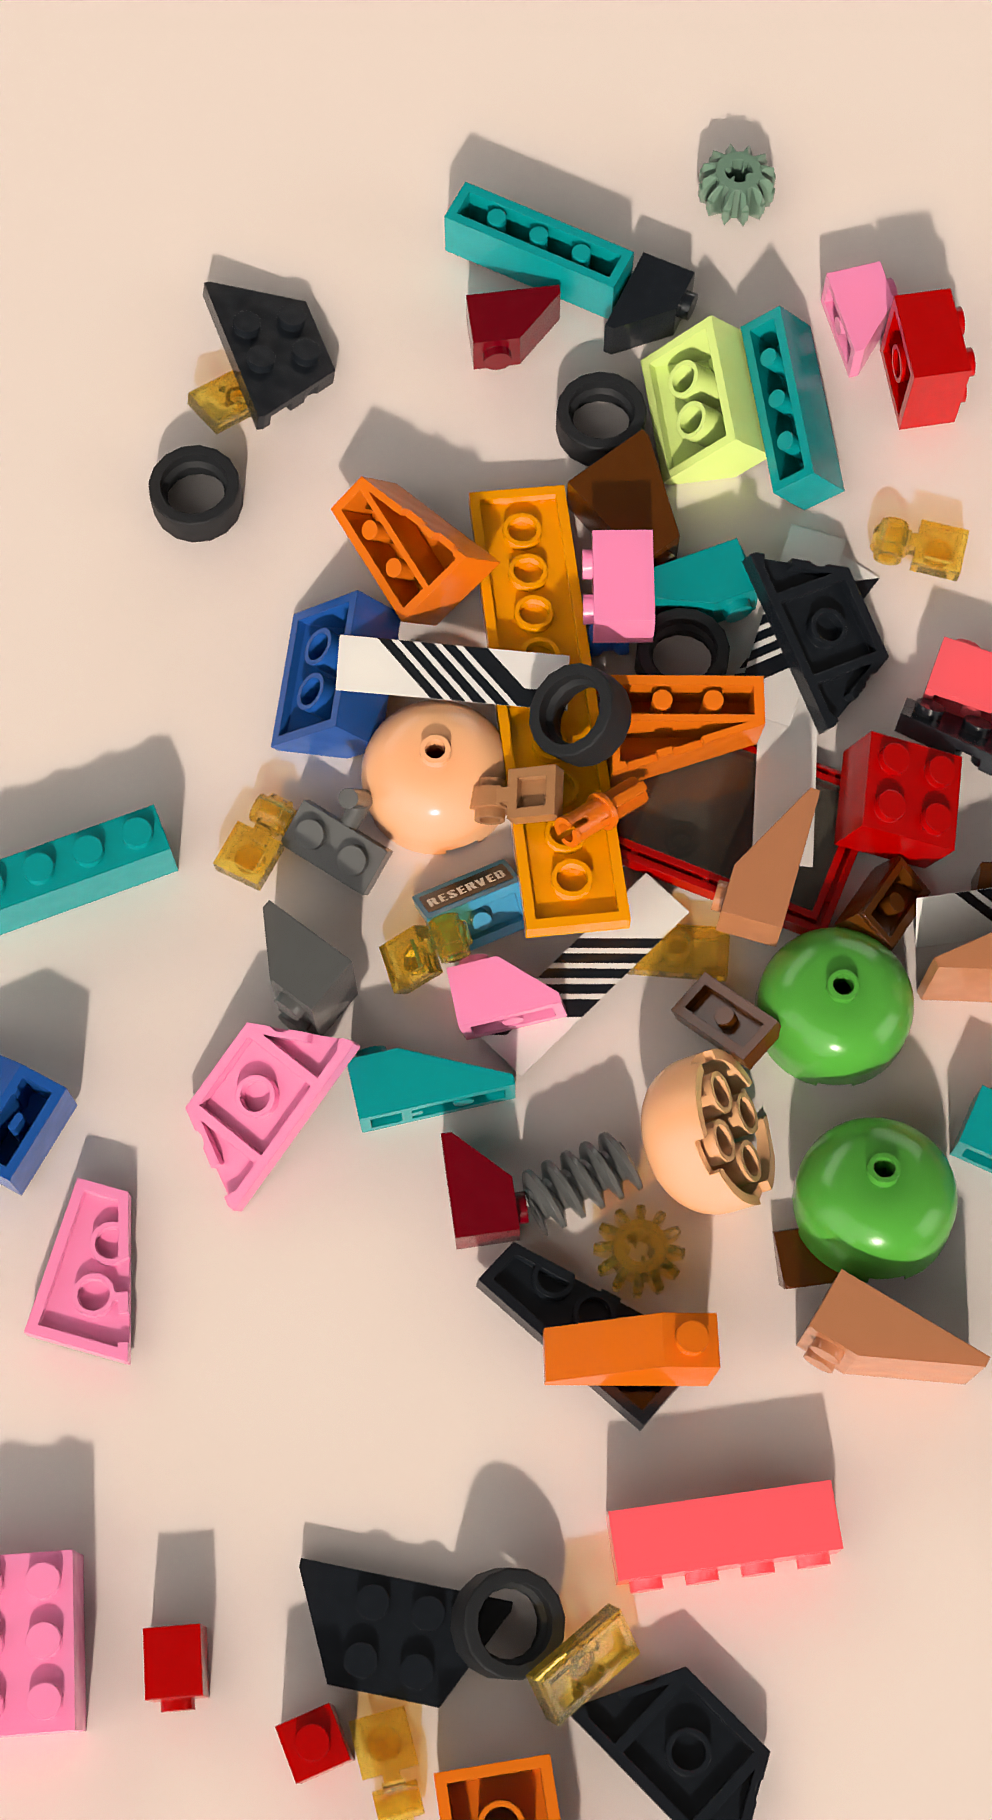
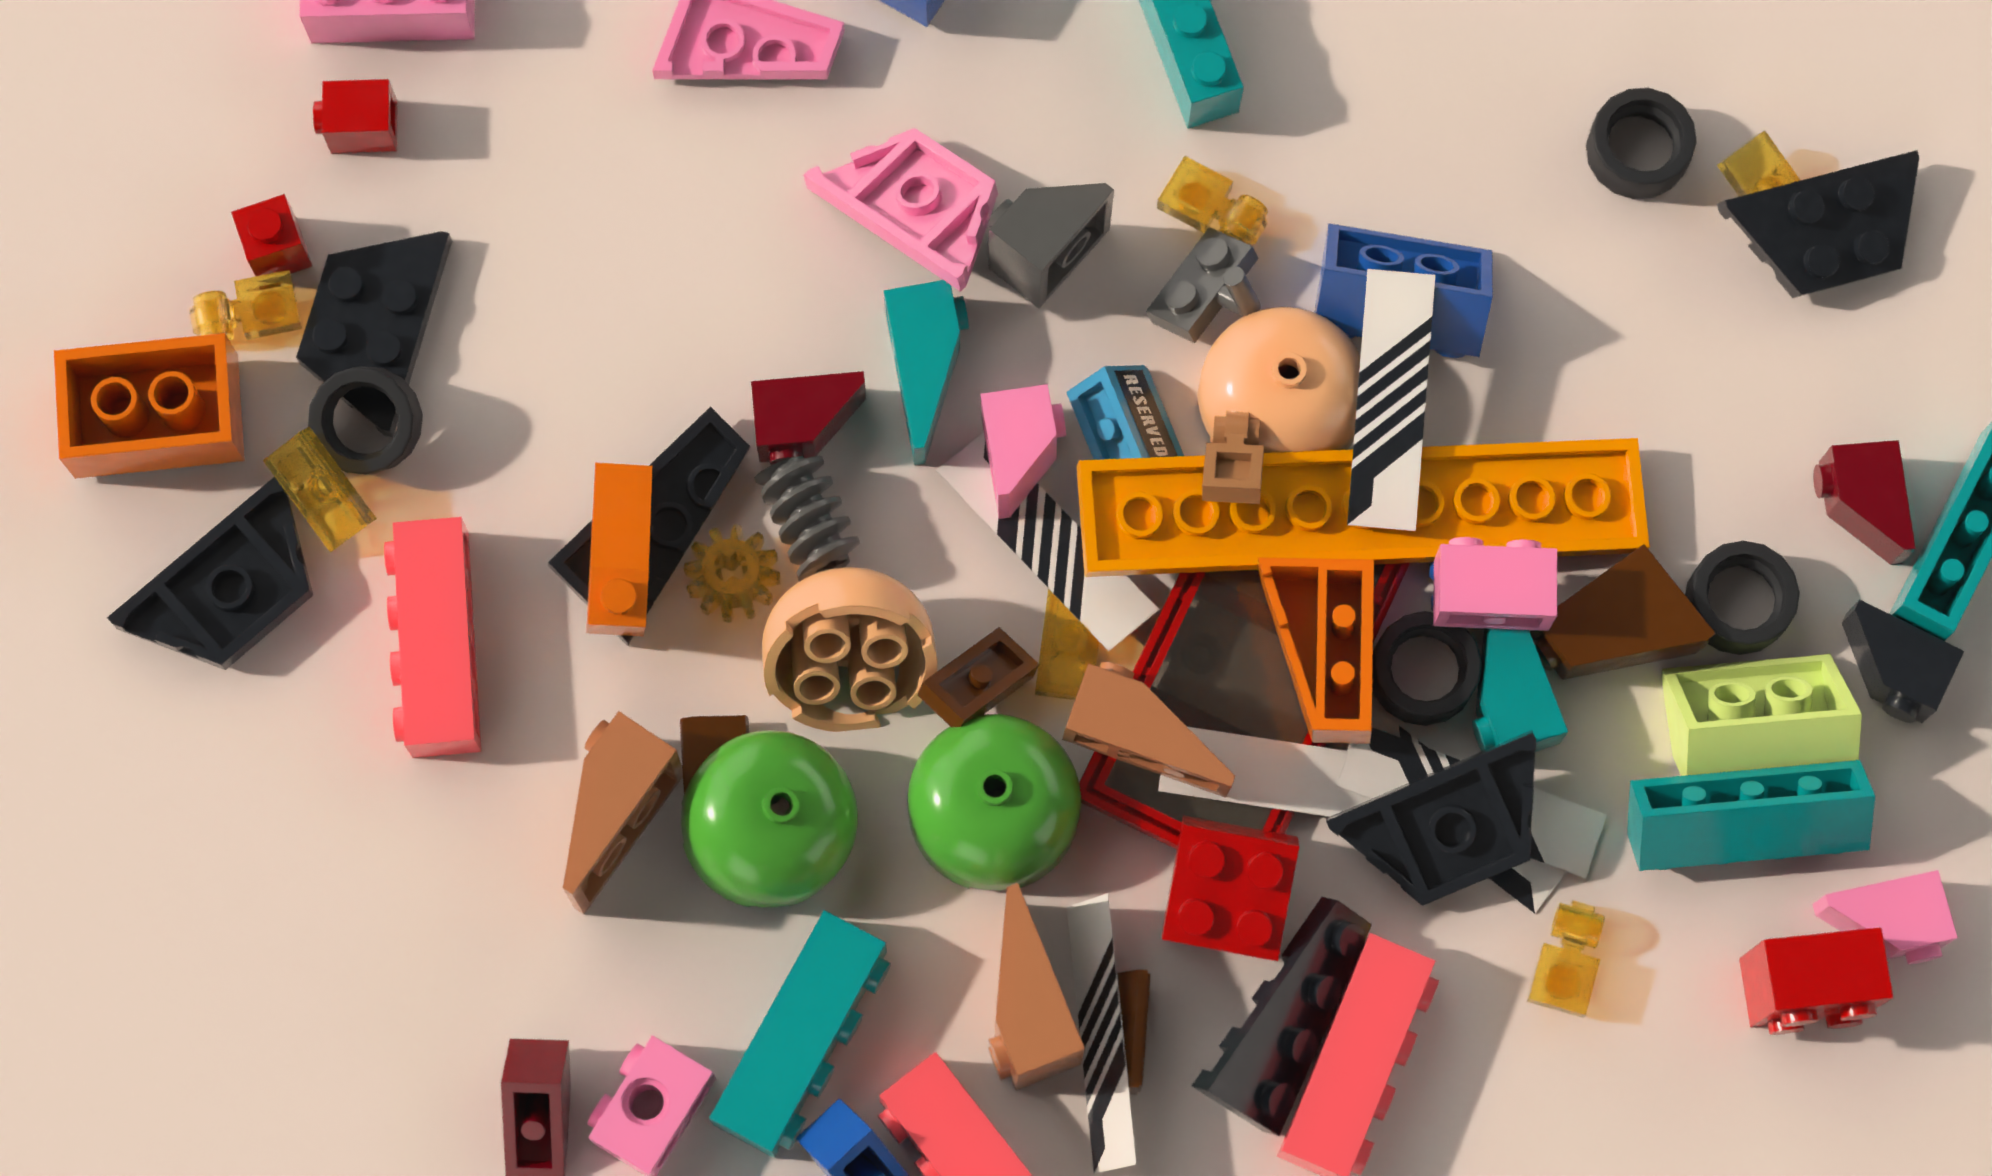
camera: 90 degrees right, 5 degrees up
(411, 550) = (1558, 365): orange wedge -> none
(414, 953) = (1073, 367): clear yellow plate -> none
(551, 702) = (1323, 550): black tyre -> none
(602, 811) = (1214, 547): orange axle -> none
(885, 902) = (1107, 862): reddish brown slope -> none

